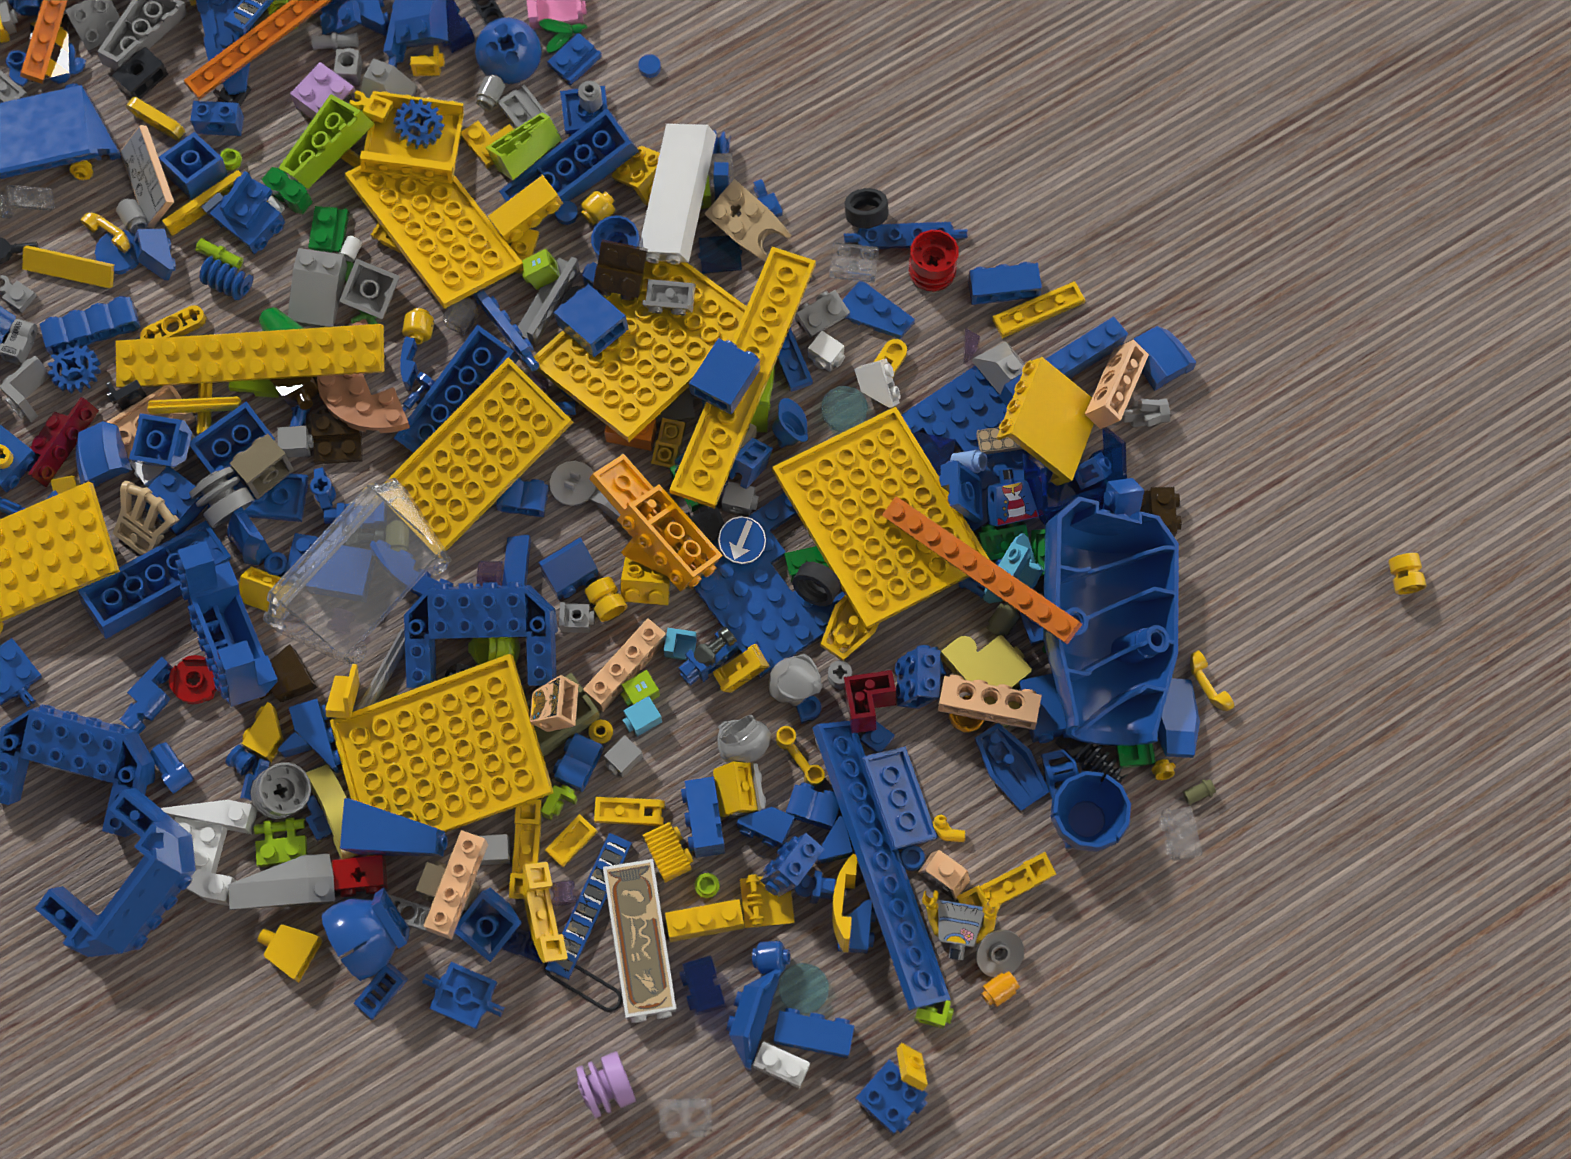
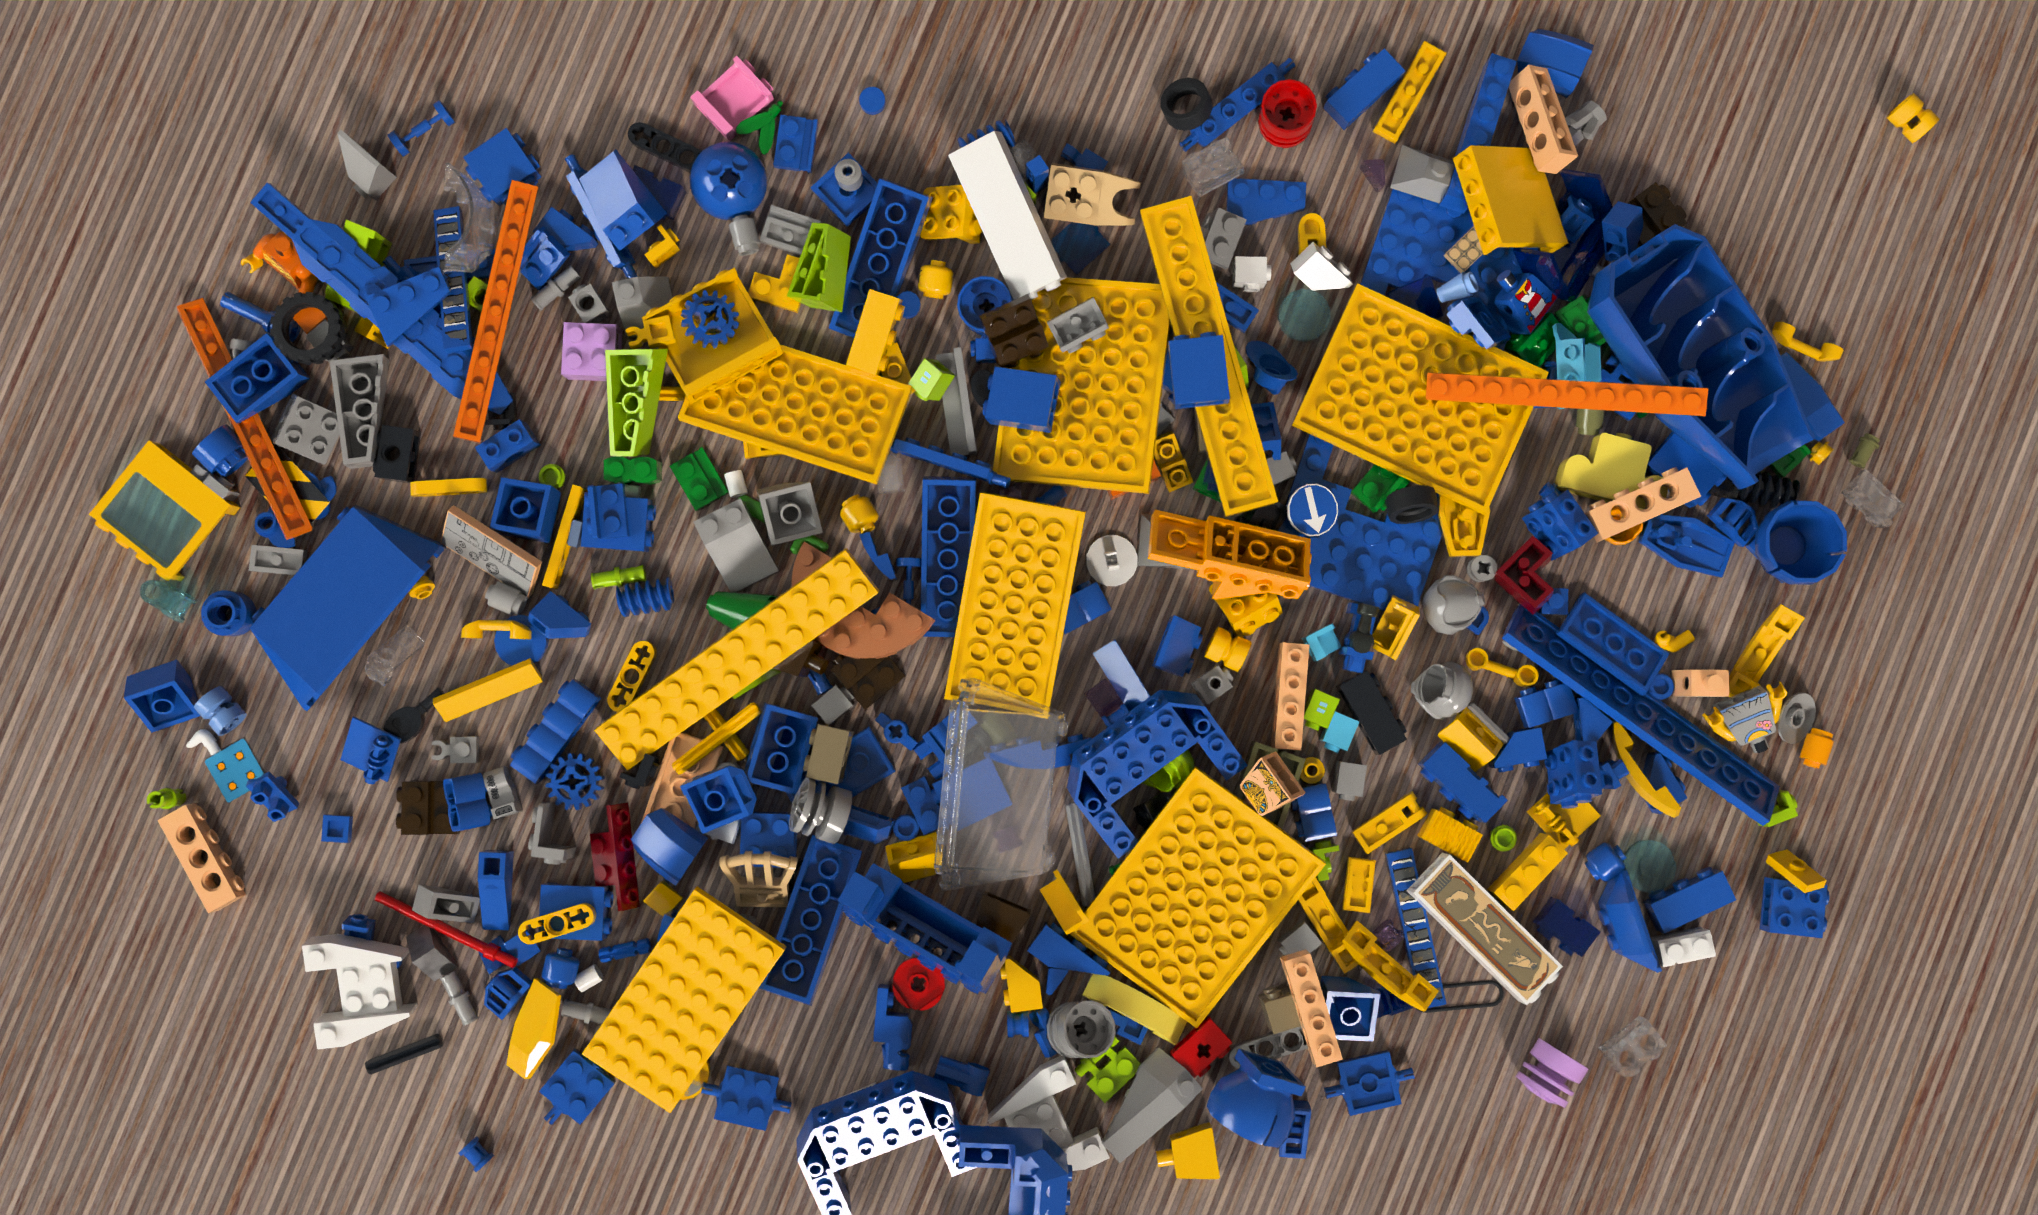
camera: 35 degrees left, 15 degrees up
(380, 832) = (1206, 1000): blue slope -> none
(678, 720) = (1372, 712): none -> black brick

